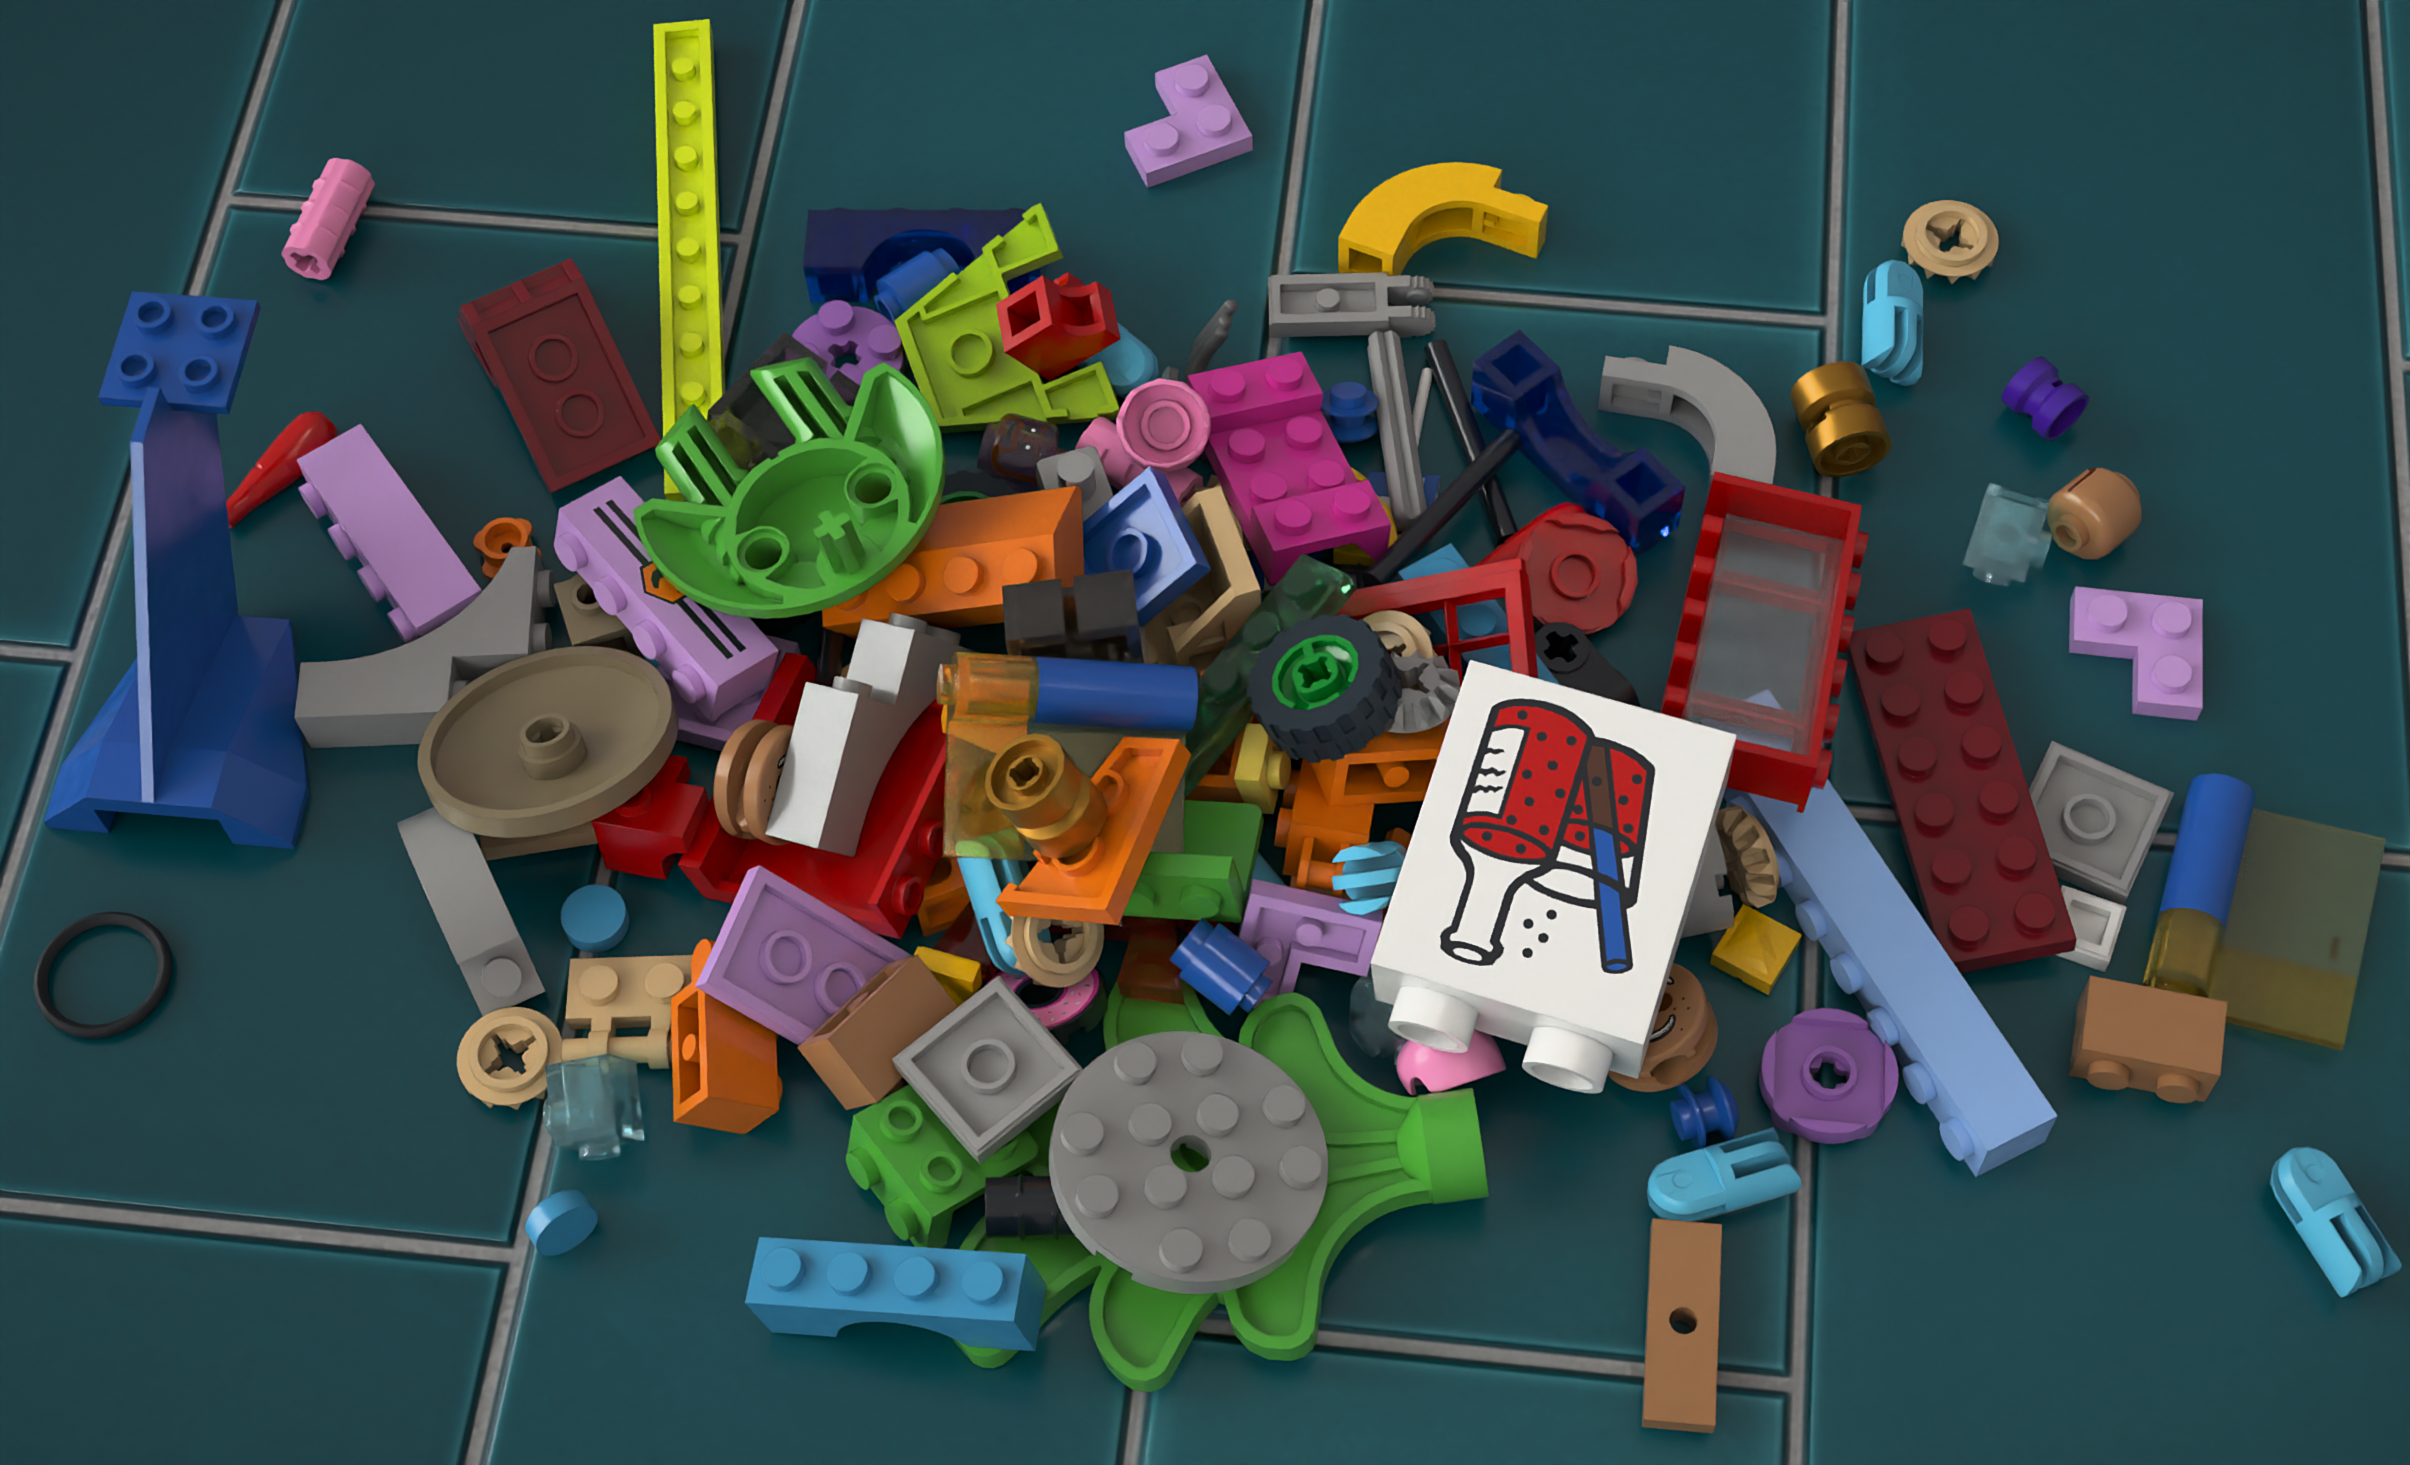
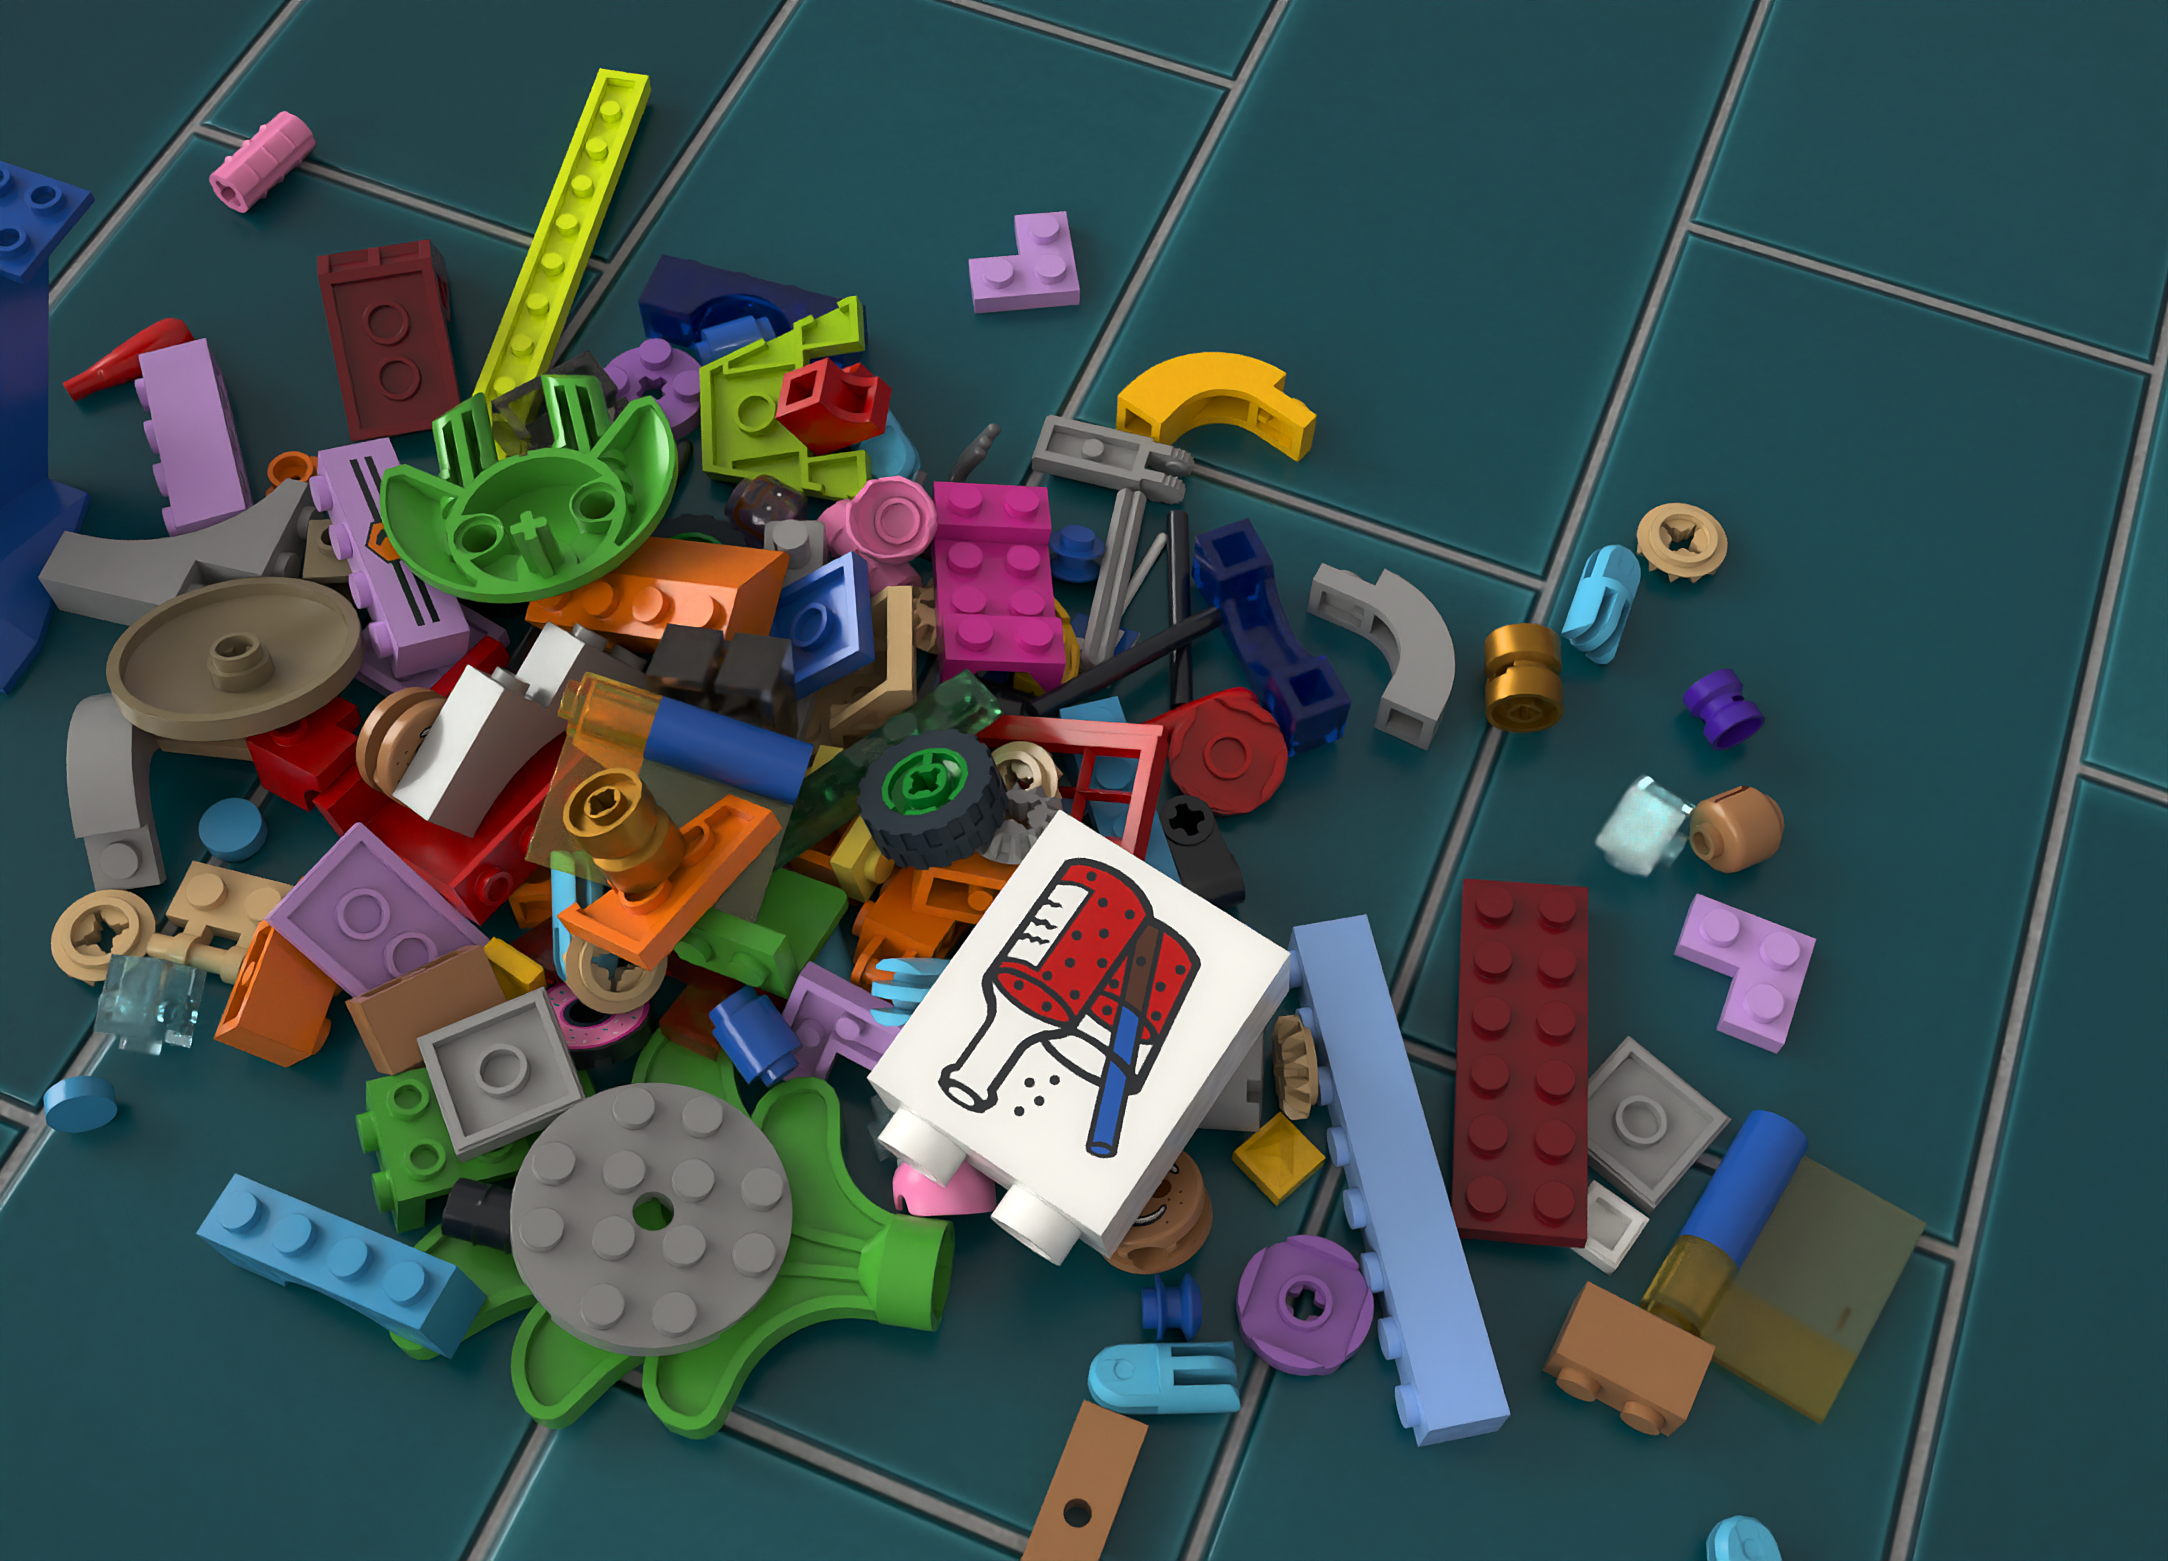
camera: 10 degrees right, 0 degrees up
(1767, 631) = (1378, 862): window -> none

